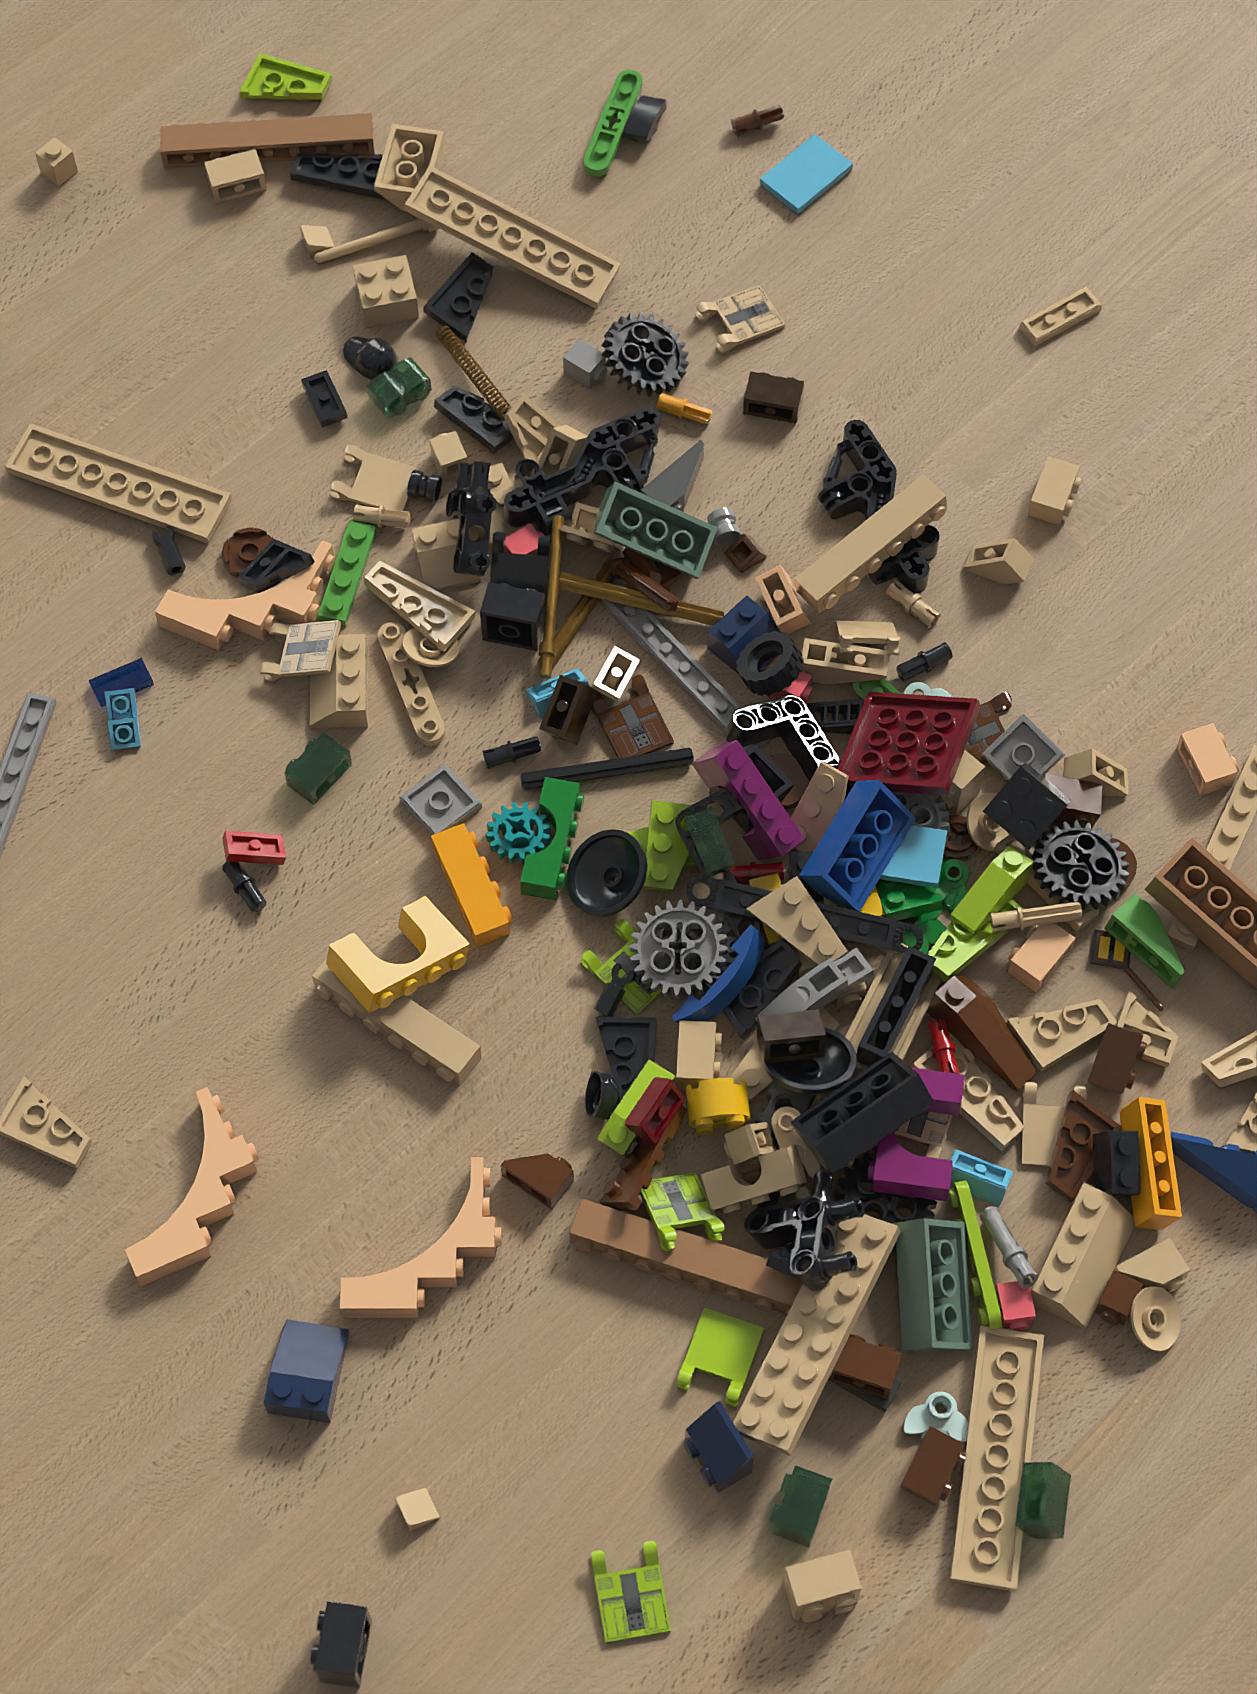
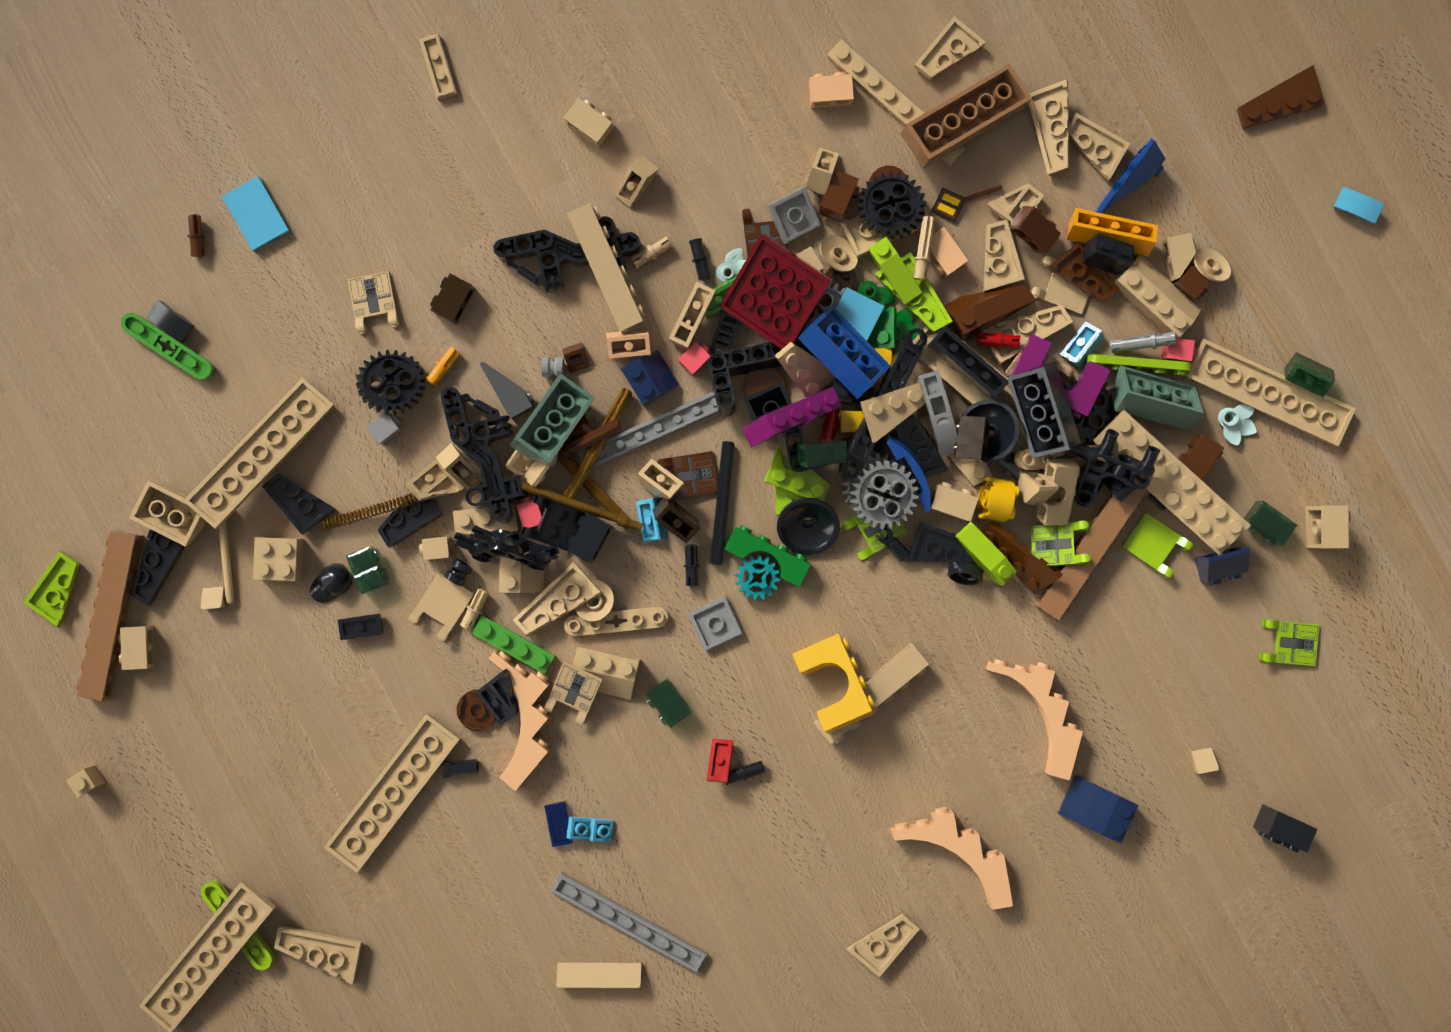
camera: 75 degrees left, 25 degrees up
(470, 884) = (787, 619): light orange brick -> none
(540, 1176) = (1010, 627): reddish brown slope -> none
(655, 1110) = (996, 543): dark red slope -> none
(778, 676) = (668, 376): black tyre -> none
(867, 632) = (671, 293): tan flag -> none
(933, 1465) = (1268, 435): reddish brown brick -> none
(1027, 805) = (846, 226): black brick -> none
(1144, 935) = (949, 179): bright green slope -> none

